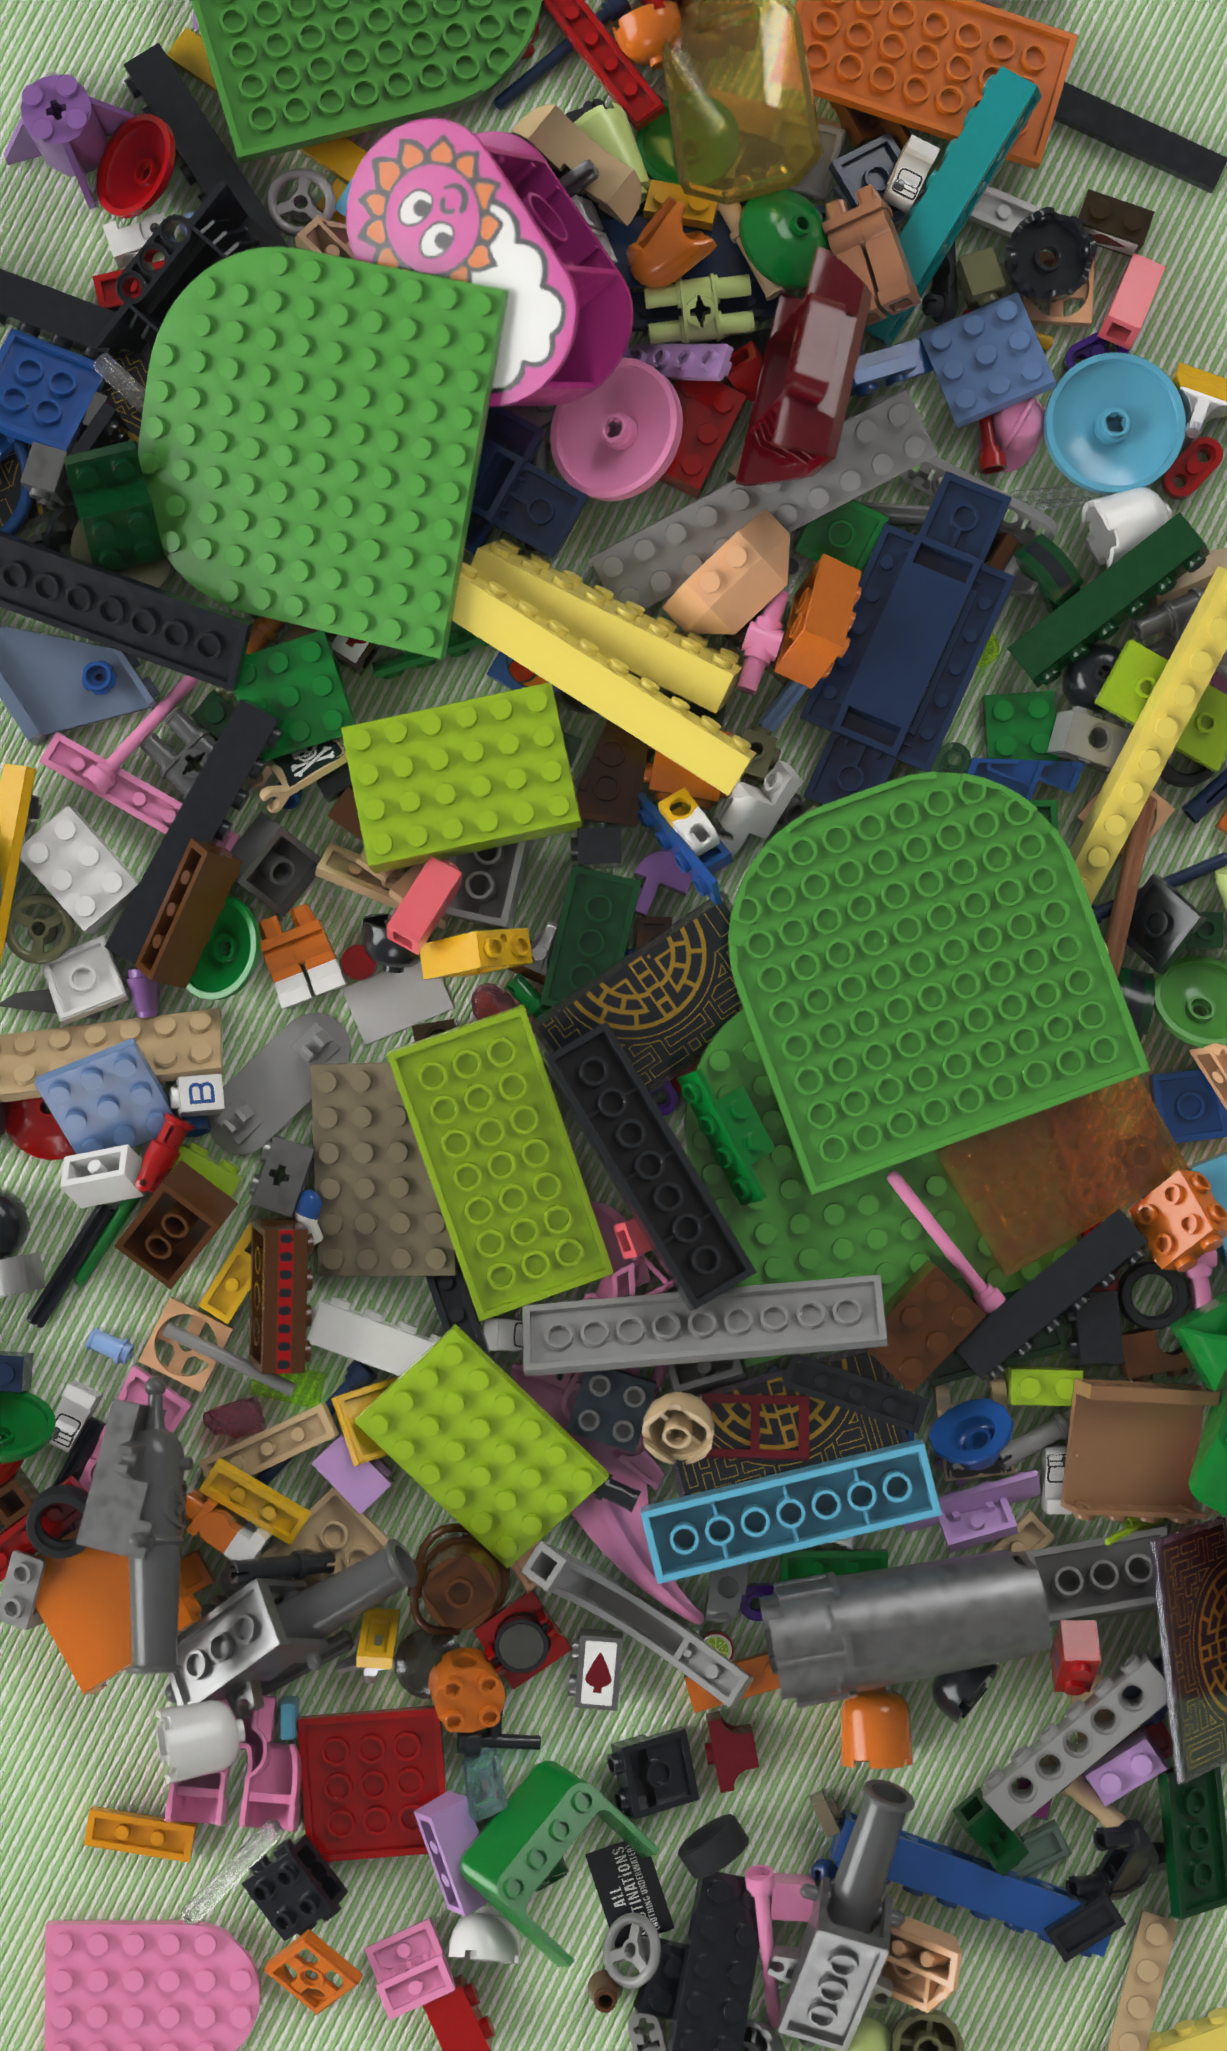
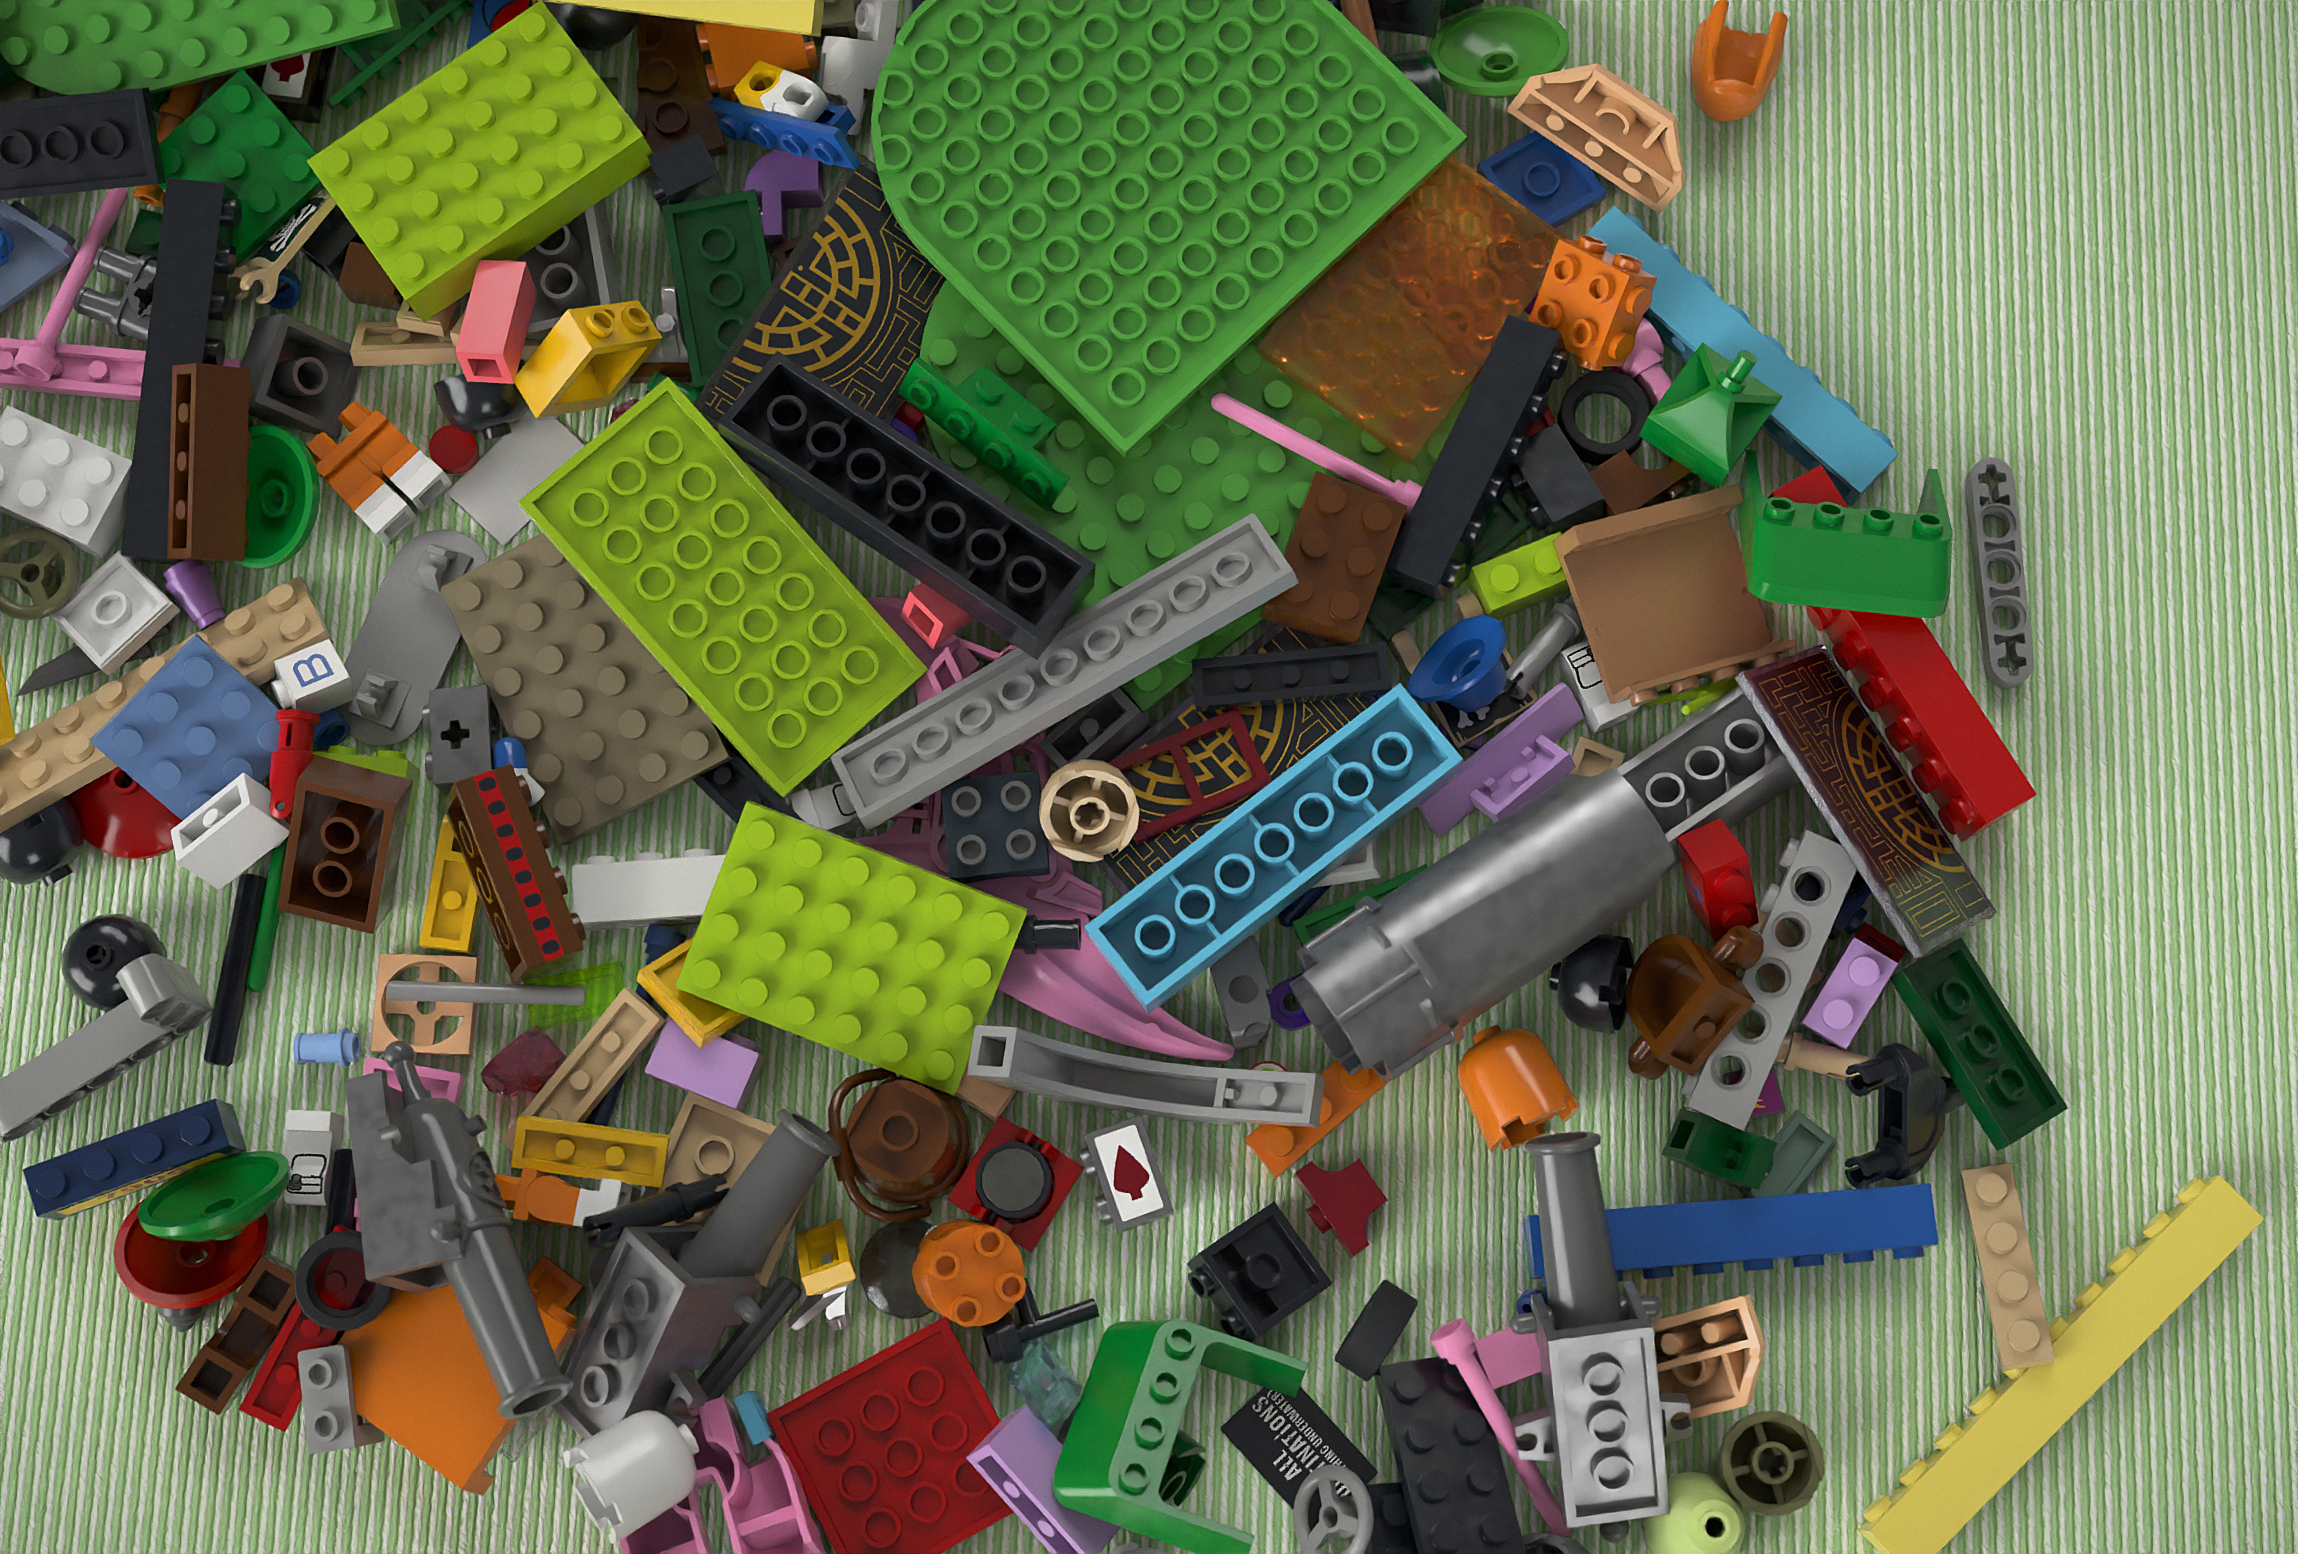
camera: 20 degrees left, 10 degrees down
(826, 1812) = (1502, 1226): dark tan plate -> none
(1017, 1727) = (1687, 999): none -> reddish brown piece
(1084, 1926) = (1894, 1212): black tile -> none

